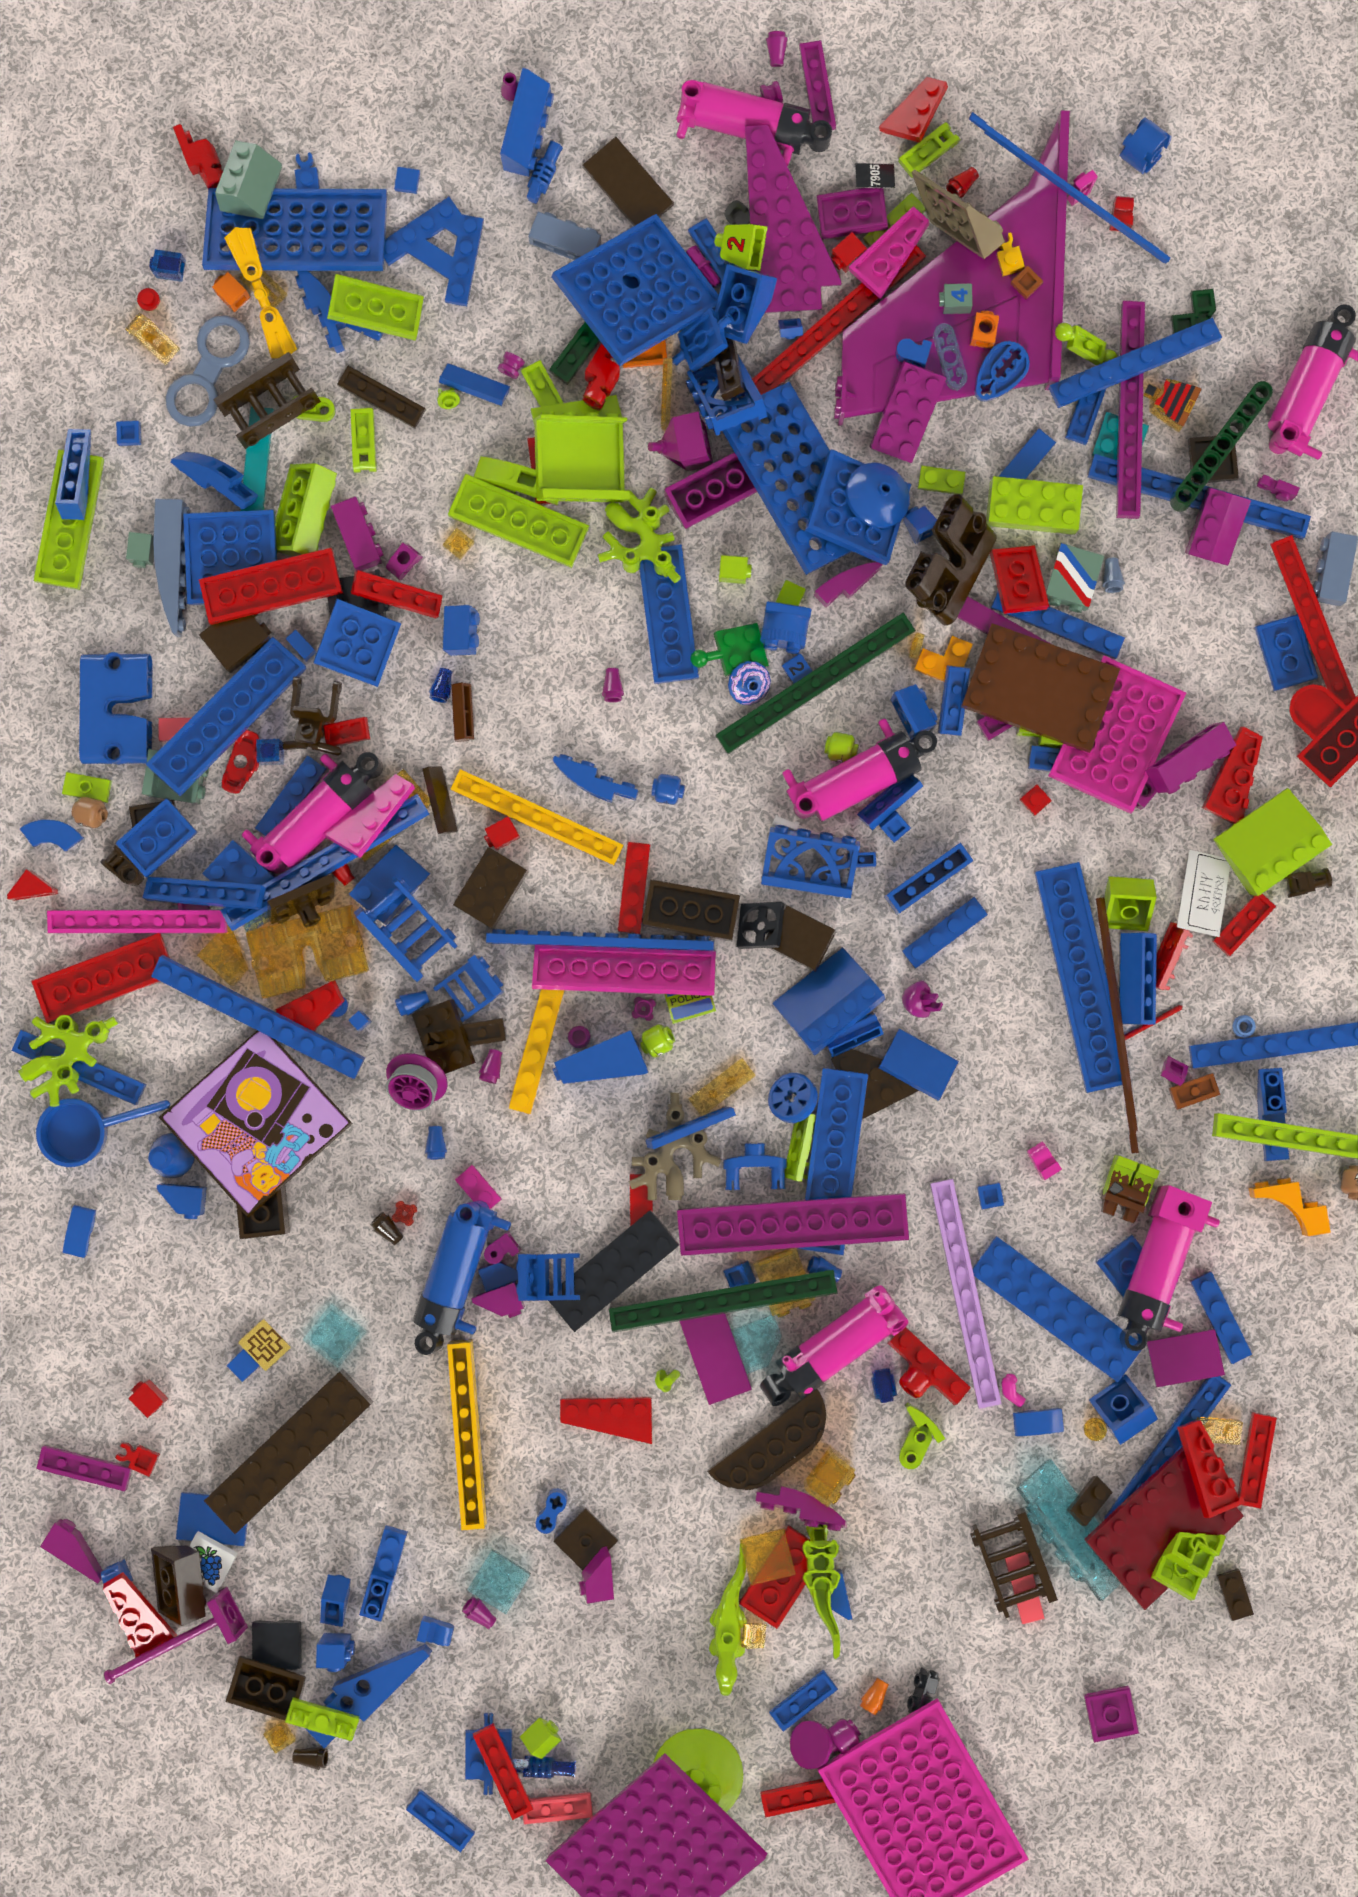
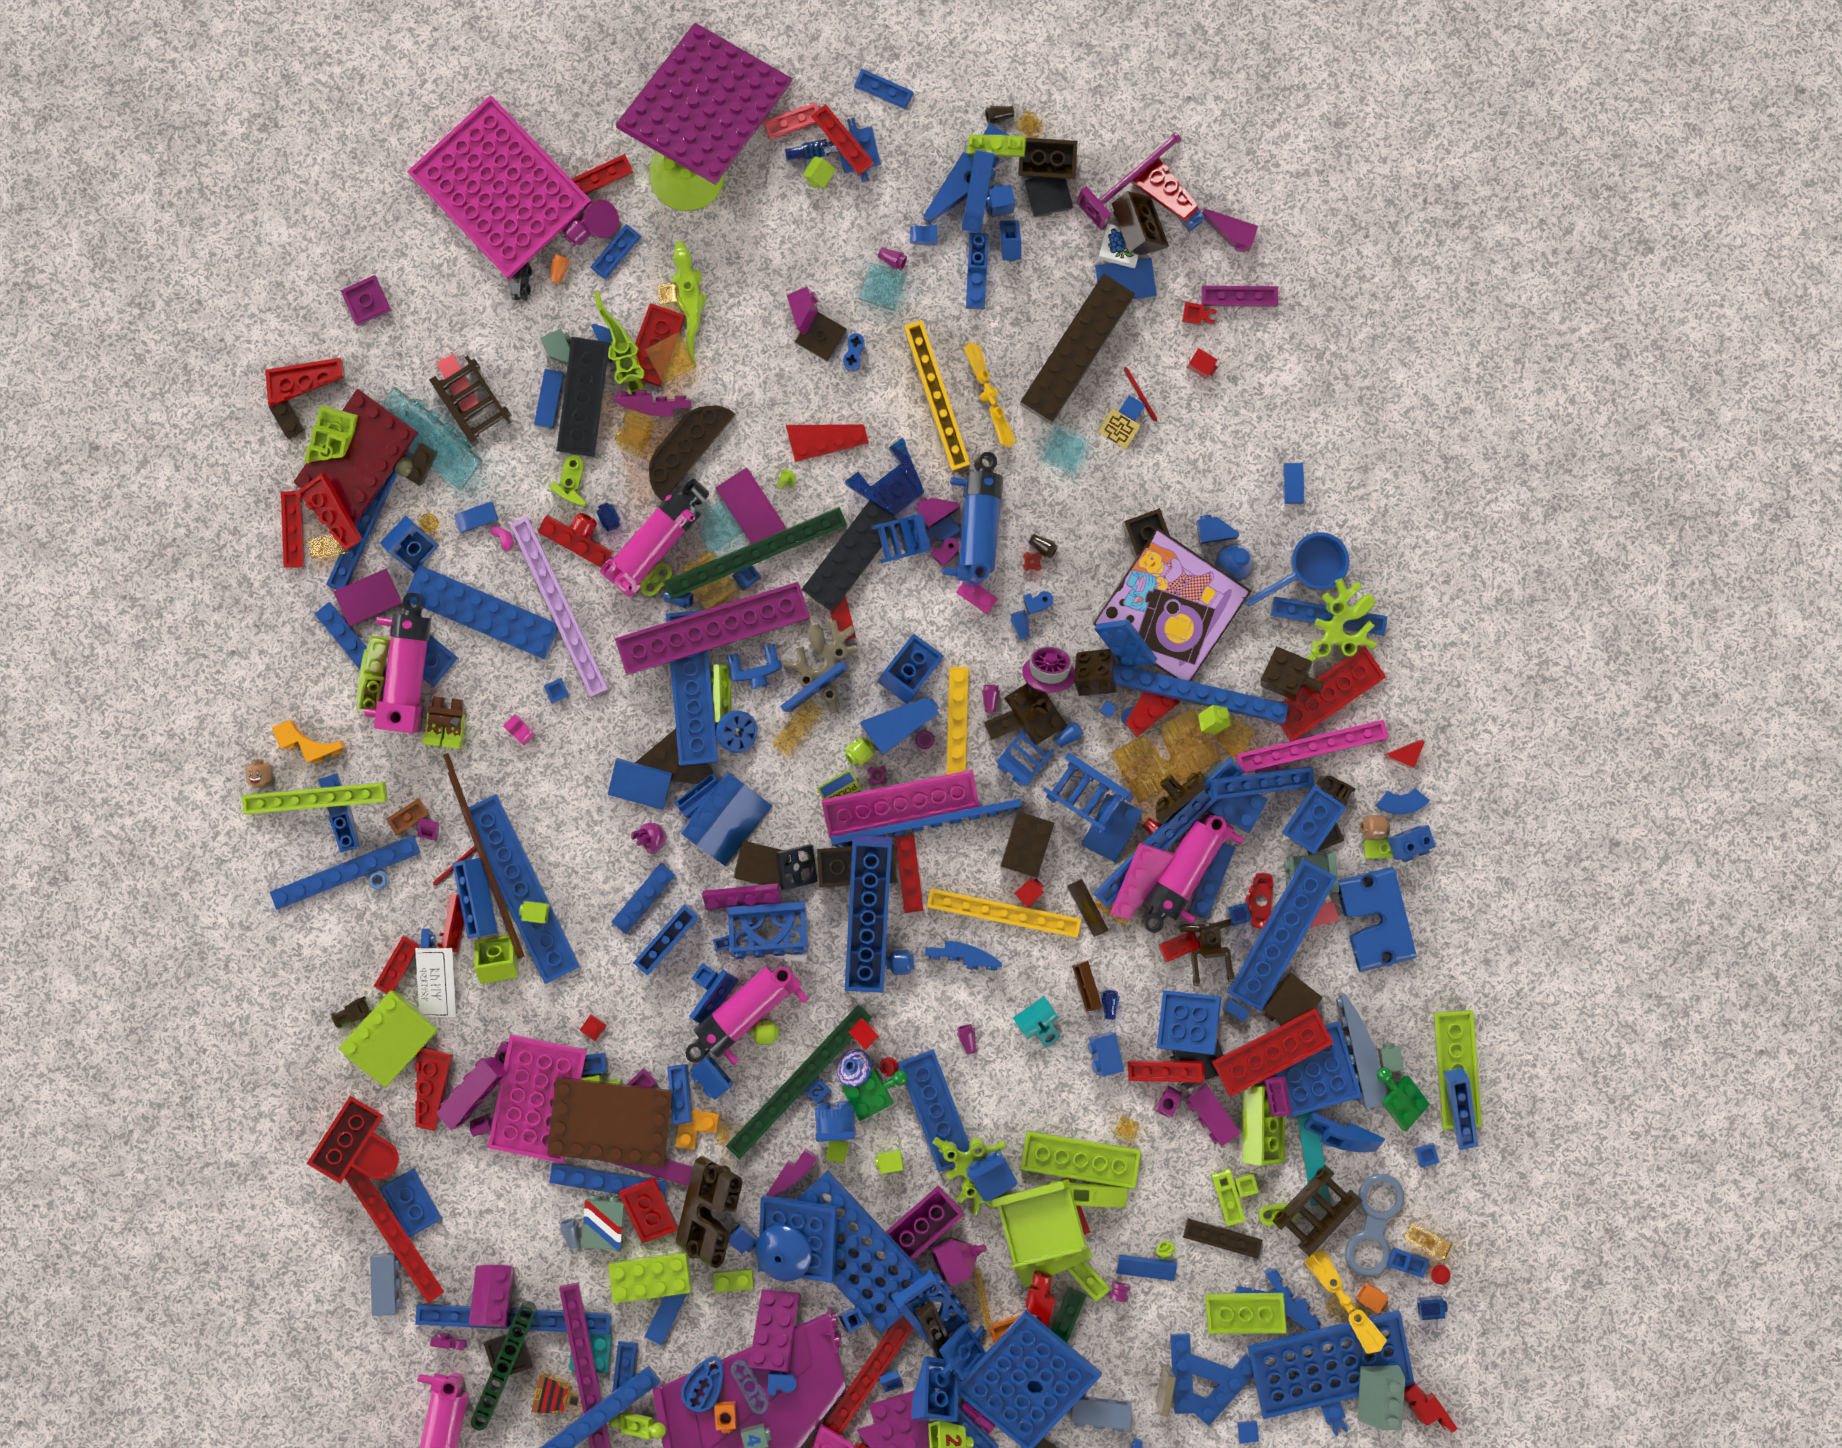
camera: 165 degrees right, 0 degrees up
(52, 784) = (1411, 842): none -> blue brick
(136, 498) = (1404, 1101): none -> green plate
(142, 1010) = (1289, 674): none -> dark brown brick
(180, 321) = (1408, 1262): none -> blue slope
(230, 1380) = (1140, 394): none -> red axle
(240, 978) = (1214, 719): none -> lime brick
(276, 535) = (1278, 1096): none -> magenta plate
(318, 1090) = (1126, 643): none -> blue plate
(339, 448) = (1246, 1185): none -> lime plate
(358, 1669) = (977, 191): none -> blue slope
(363, 1066) = (1094, 672): none -> dark brown bracket
(409, 1162) = (1039, 603): none -> blue leg
(410, 1466) = (989, 395): none -> yellow piece
(485, 243) = (1165, 1390): none -> dark tan tile
(527, 685) = (1038, 1021): none -> teal piece
(540, 1337) = (896, 488): none -> clear blue wing
(575, 1122) = (910, 668): none -> blue slope
(622, 524) = (991, 1175): none -> blue bracket
(690, 851) = (868, 913): none -> blue brick
(709, 675) = (888, 1066): none -> red plate
(728, 717) = (864, 1033): none -> red slope
(818, 405) = (851, 1319): none -> blue leg
(831, 906) = (741, 896): none -> magenta plate
(845, 1298) = (655, 579): none -> lime plate
(881, 1535) = (583, 396): none -> black plate
(897, 1600) = (557, 345): none -> sand green slope
(921, 1543) = (549, 398): none -> blue tile
(1073, 946) = (534, 911): none -> lime brick
(1110, 1502) = (404, 467): none -> olive piece
(1188, 719) = (480, 1125): none -> magenta plate
(1200, 1267) = (371, 672): none -> lime slope
(1202, 944) = (428, 939): none -> blue plate
(1210, 1637) = (298, 379): none -> red wing

